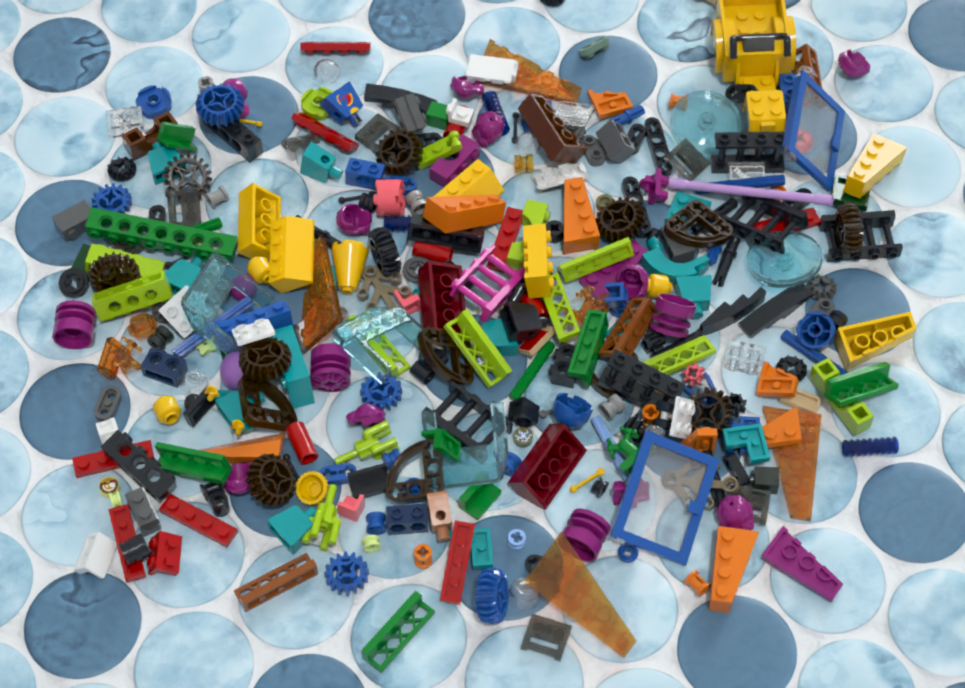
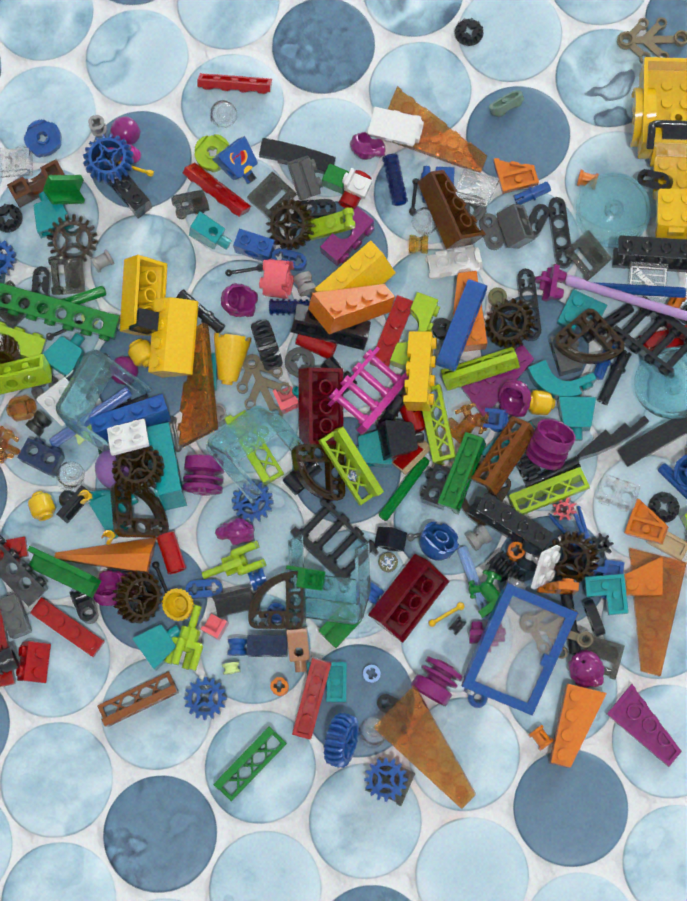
camera: 10 degrees right, 20 degrees up
(264, 238) = (146, 322): none -> black panel
(367, 203) = (253, 279): black wheel -> none
(486, 130) = (385, 205): magenta hair -> none
(542, 639) = (379, 786): none -> blue gear
(573, 219) = (461, 325): none -> blue beam
(652, 240) = (541, 348): teal arm -> none
(765, 479) = (620, 631): pearl dark grey brick -> none

